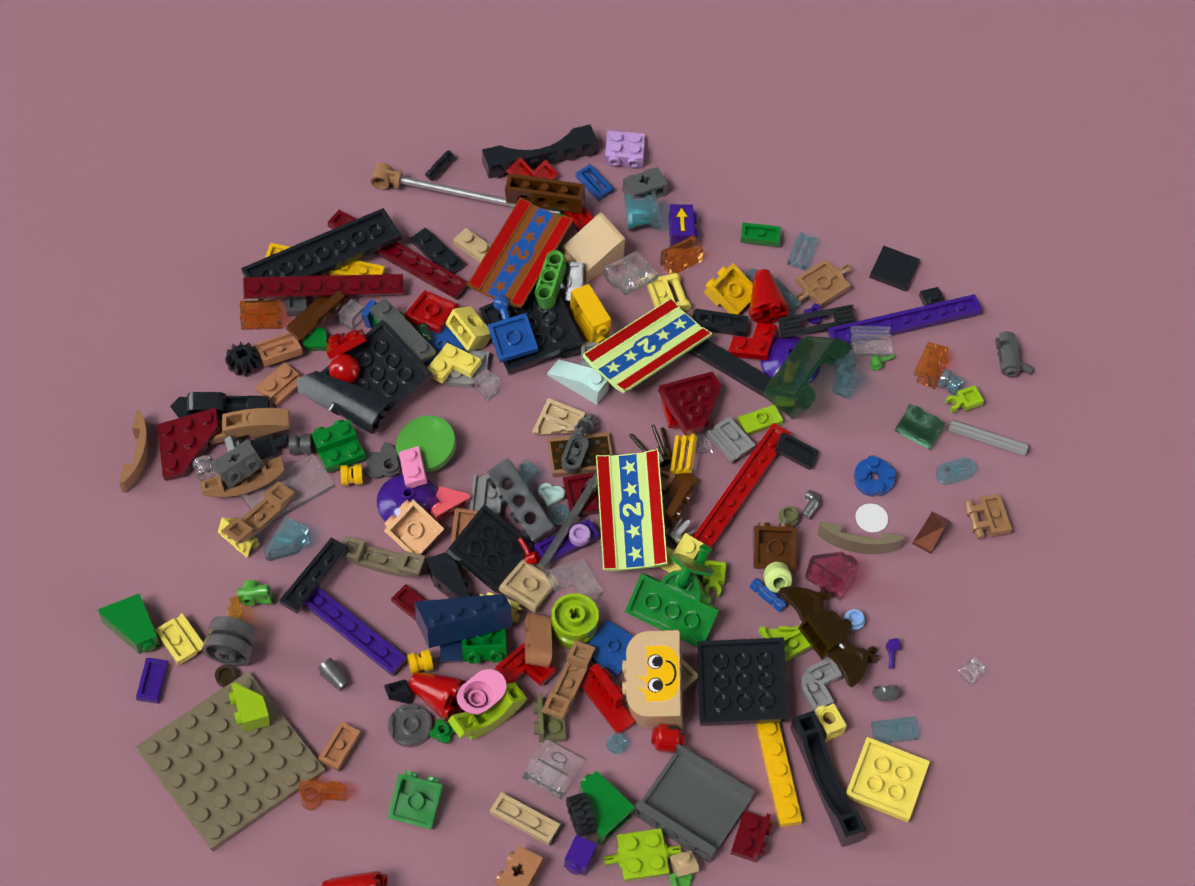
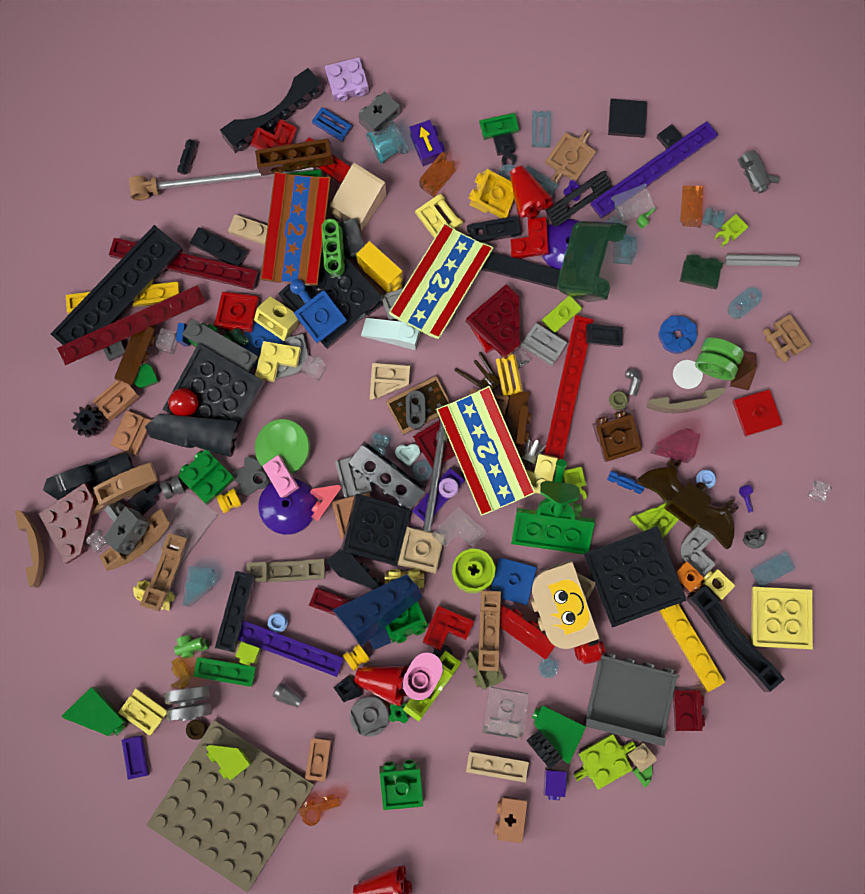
camera: 15 degrees left, 20 degrees up
(261, 314) = (86, 371): clear orange hinge -> none
(280, 630) = (224, 672): none -> green plate
(310, 620) = (248, 653): none -> lime plate
(341, 343) = (171, 377): red plate -> none
(353, 603) = (277, 622): none -> light blue plate
(413, 527) = (302, 535): light nougat plate -> none
(530, 558) = (415, 524): red hand -> none
(538, 640) = (449, 602): nougat beam -> none
(585, 425) = (414, 378): dark grey axle -> none
(630, 273) = (399, 211): clear plate -> none
(759, 254) = (504, 146): none -> black plate
(777, 576) = (630, 466): yellowish green head -> none
(799, 702) = (689, 577): none -> orange brick
(908, 507) = (719, 359): none -> bright green wheel
(932, 576) = (757, 413): none -> red plate

